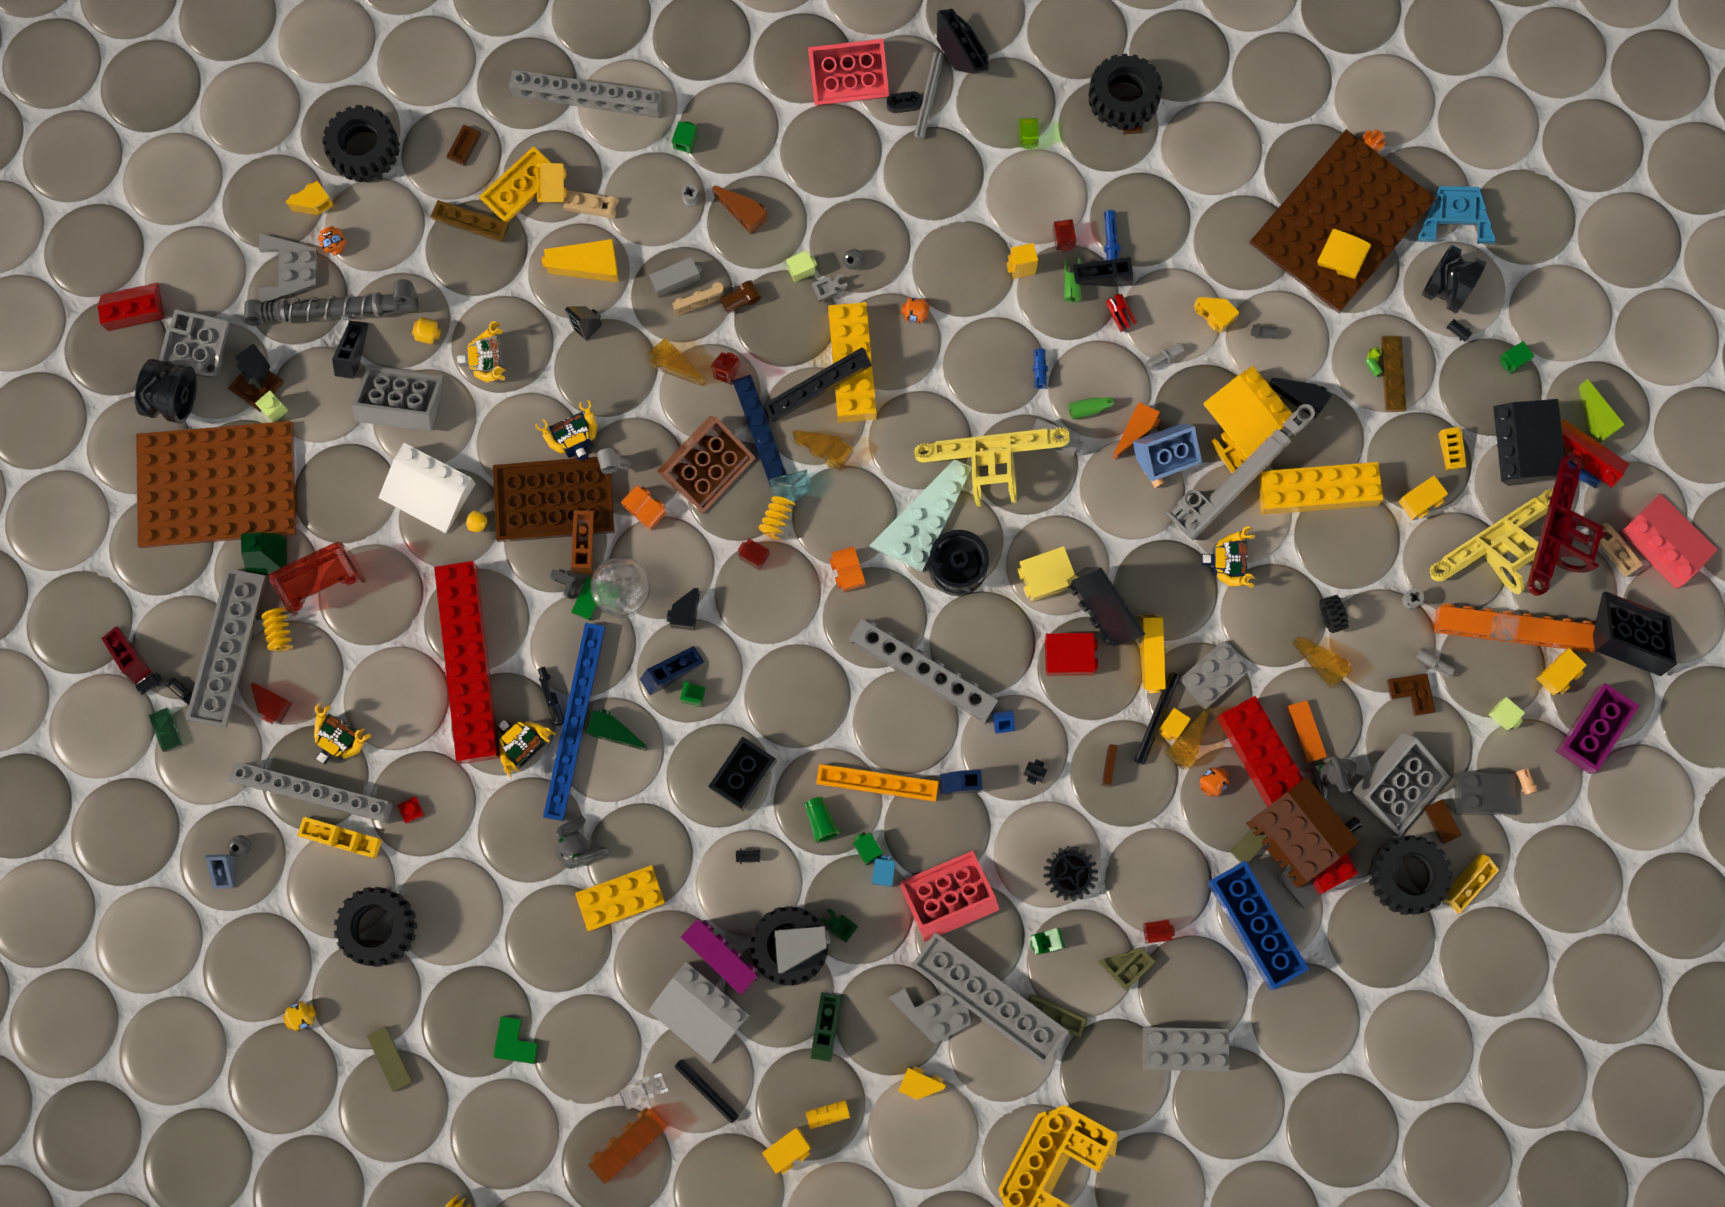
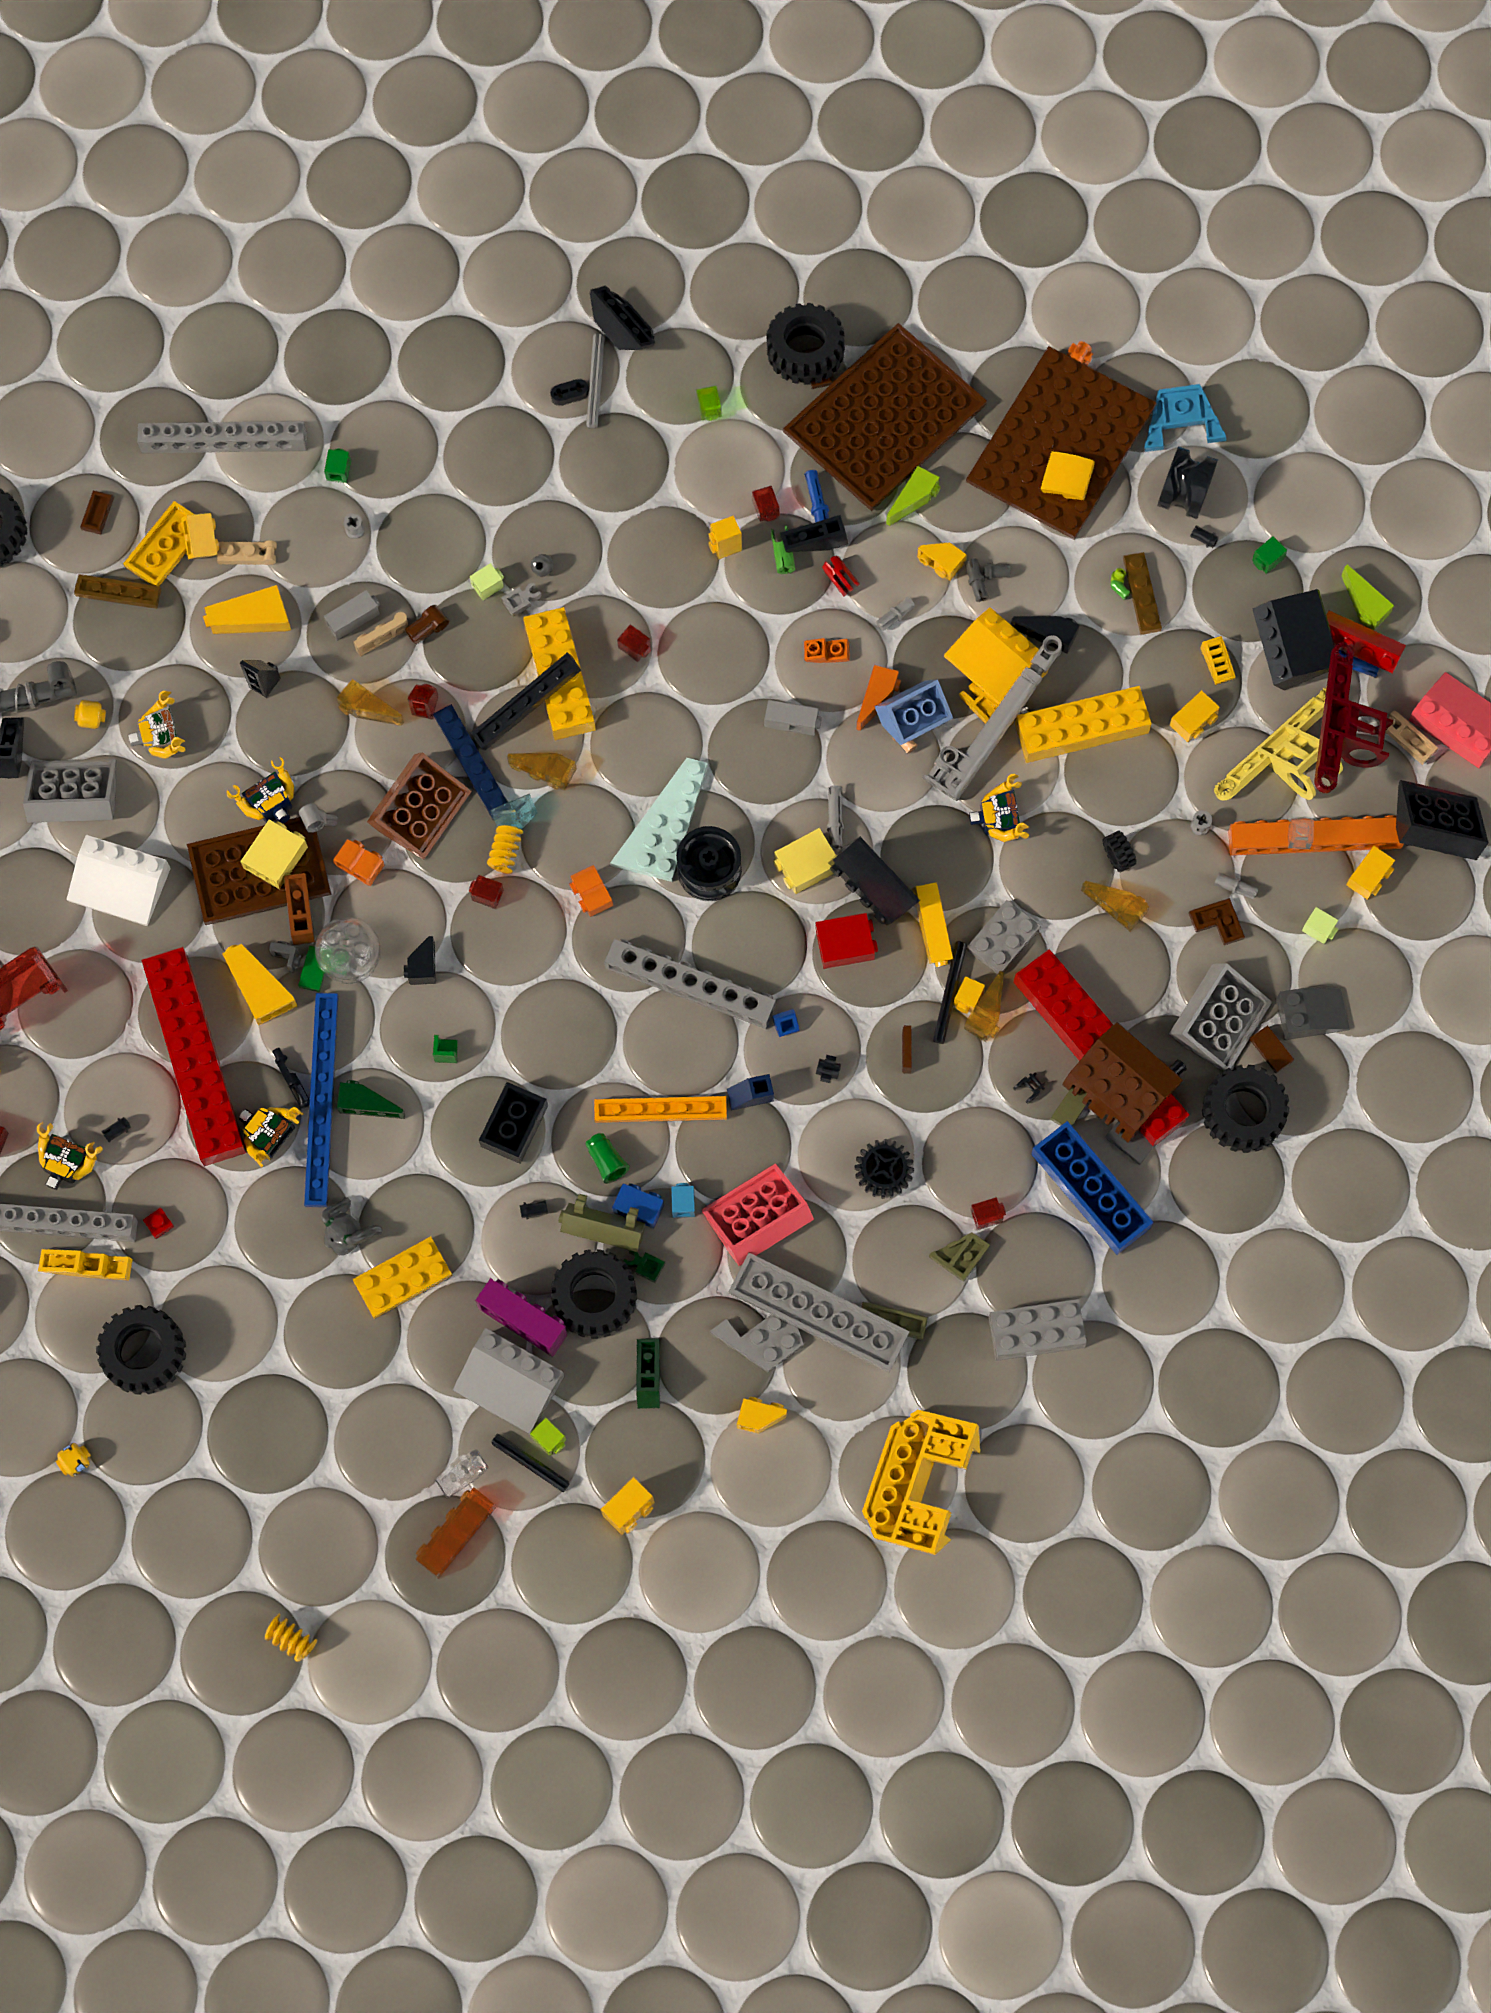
camera: 10 degrees left, 5 degrees down
(387, 717) = (116, 1129): none -> black pin
(389, 1059) = (179, 1488): olive tile -> none
(476, 521) = (179, 907): yellow piece -> none
(508, 1045) = (309, 1453): green tile -> none
(534, 607) = (259, 987): none -> yellow slope
(569, 487) = (274, 853): none -> light yellow brick
(671, 670) = (416, 1028): dark blue slope -> none
(726, 1071) = (548, 1437): none -> lime brick
(743, 209) = (414, 531): dark orange slope -> none
(798, 945) = (605, 1286): light grey slope -> none
(806, 883) = (602, 1226): none -> olive brick
(827, 1114) = (665, 1464): yellow axle -> none
(843, 869) = (649, 1204): none -> blue brick
(848, 71) = (504, 369): coral slope -> none
(867, 847) = (660, 1178): green brick -> none
(915, 310) = (618, 608): orange head -> none
(924, 345) = (634, 643): none -> clear red brick
(991, 451) = (724, 741): light yellow piece -> none
(1040, 368) = (763, 648): blue pin -> none
(1047, 941) = (871, 1243): green bracket -> none
(1078, 545) = (835, 824): none -> light grey pin
(1089, 407) = (822, 679): bright green piece -> none
(1097, 381) = (826, 651): none -> orange slope
(1185, 170) = (884, 416): none -> reddish brown plate
(1201, 248) = (915, 494): none -> lime slope
(1212, 813) = (1025, 1081): none -> black piece
(1214, 782) = (1021, 1048): orange head -> none
(1244, 337) = (976, 580): none -> dark grey pin
(1306, 731) = (1112, 980): orange tile -> none
(1333, 774) = (1146, 1016): dark grey hair -> none
(1471, 882) = (1311, 1108): yellow slope -> none
(1526, 781) = (1353, 992): light nougat pin -> none
(1597, 728) = (1417, 924): magenta brick -> none

